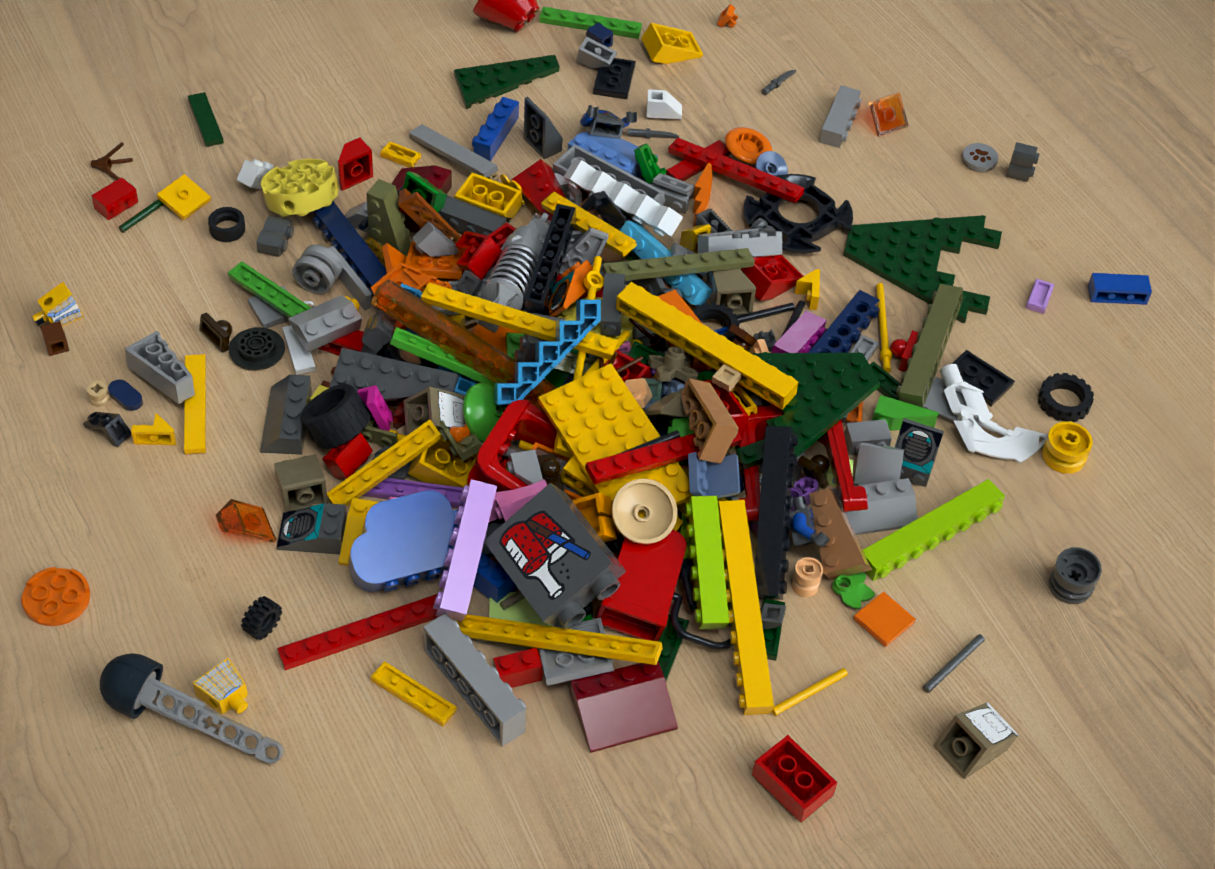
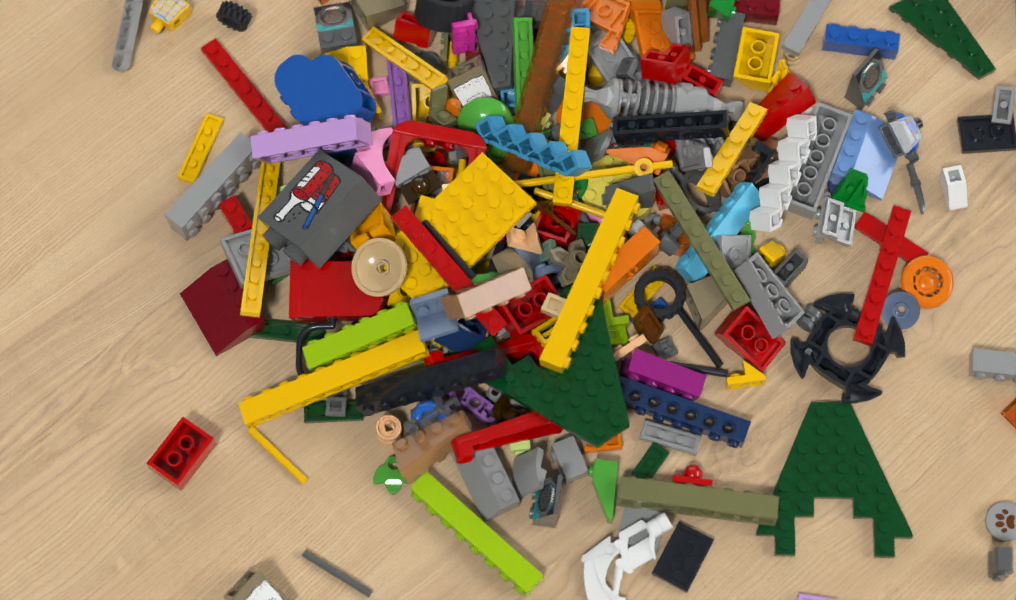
camera: 80 degrees right, 20 degrees up
(702, 191) = (845, 252): orange slope -> none
(884, 619) = (368, 507): orange tile -> none
(885, 353) = (682, 462): yellow bar -> none

